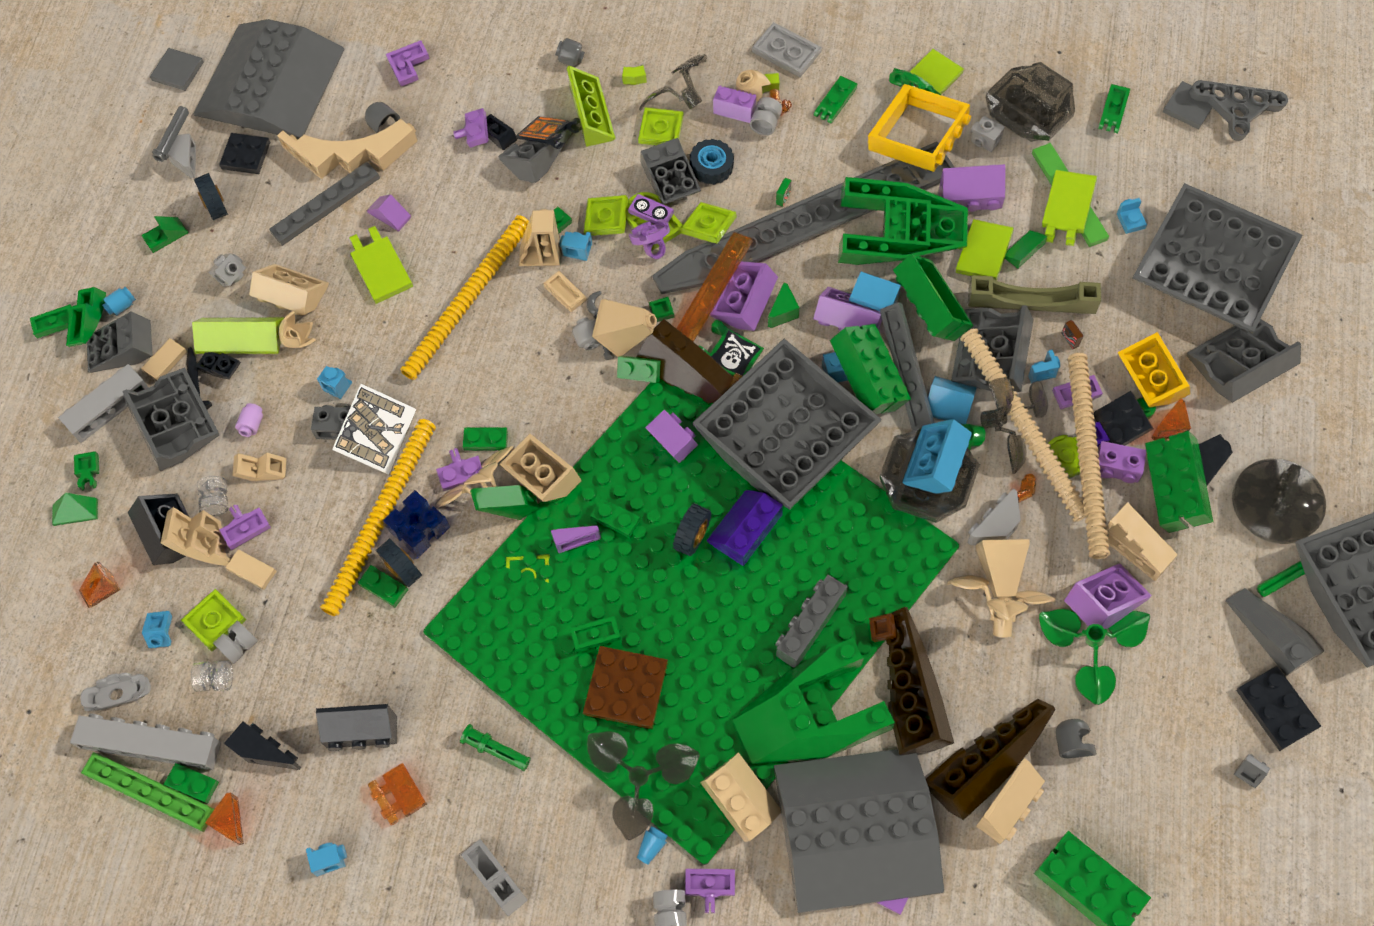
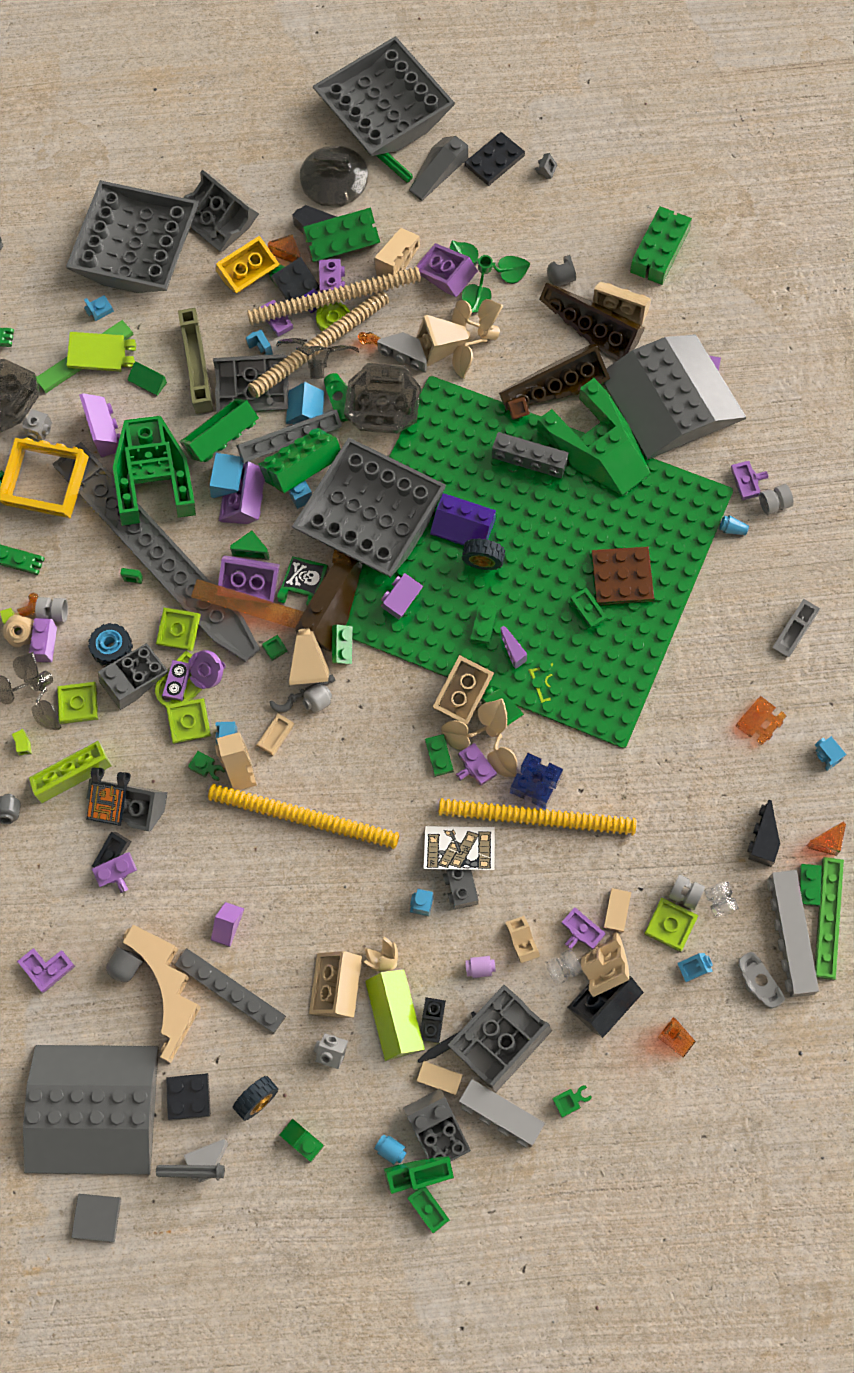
camera: 105 degrees left, 5 degrees up
(74, 509) = (612, 1096): slope -> none
(357, 726) = (723, 763): slope -> none
(380, 266) = (289, 910): lime tile -> none
(383, 586) = (597, 793): green plate -> none
(398, 562) = (578, 777): black wheel -> none
(485, 743) = (700, 665): green pin -> none
(630, 813) = (670, 523): clear smoke plant -> none
(741, 797) = (681, 470): tan slope -> none
(937, 456) = (371, 391): dark azure slope -> none
(985, 249) = (157, 403): lime tile -> none
(1072, 334) = (224, 329): reddish brown tile -> none

